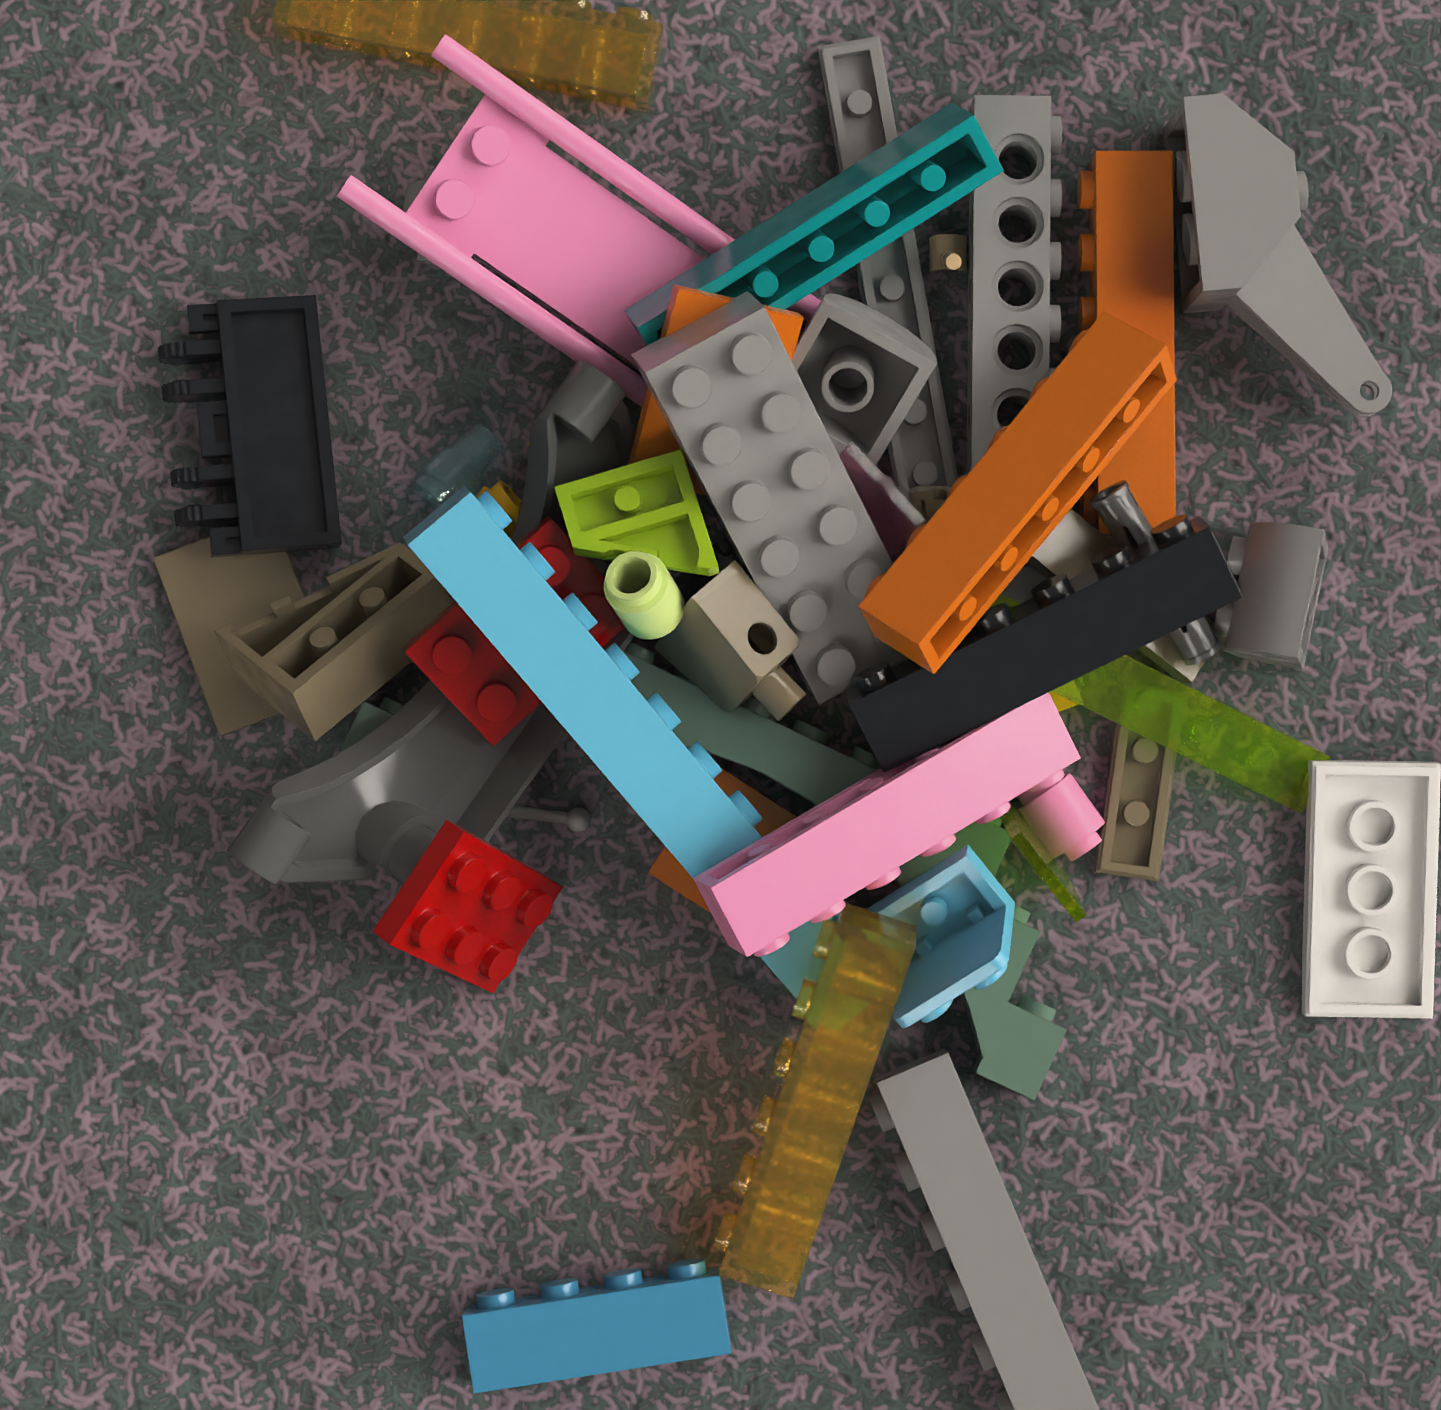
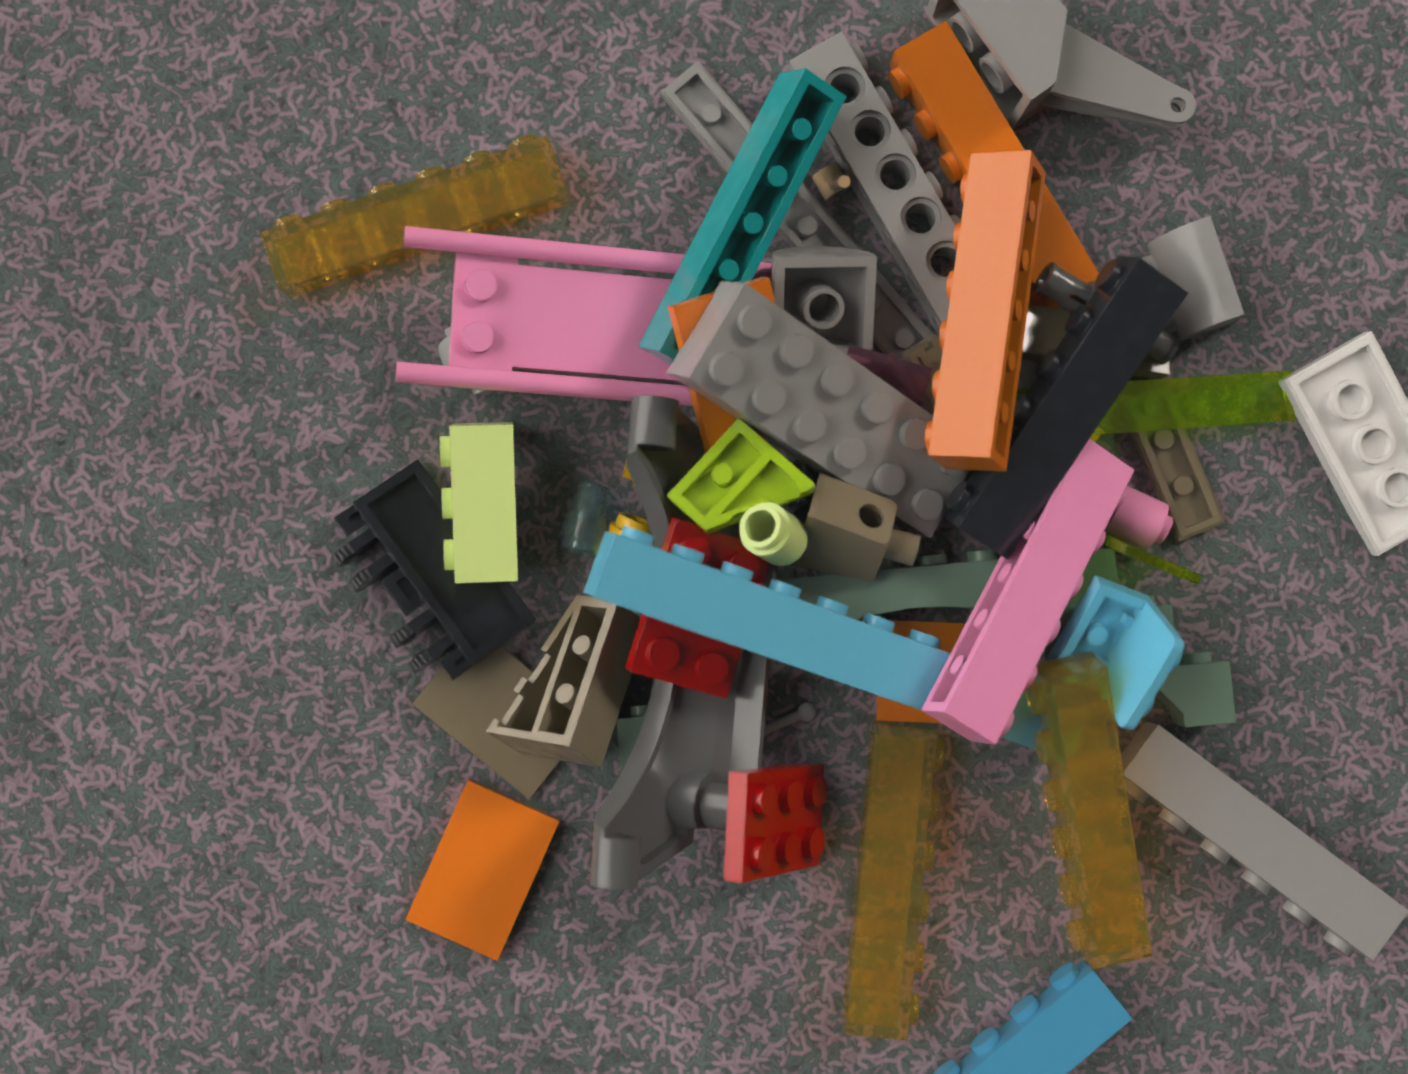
camera: 30 degrees left, 0 degrees up
(125, 783) = (483, 869): none -> orange tile
(354, 379) = (480, 502): none -> yellowish green wedge
(559, 1051) = (890, 880): none -> clear yellow brick

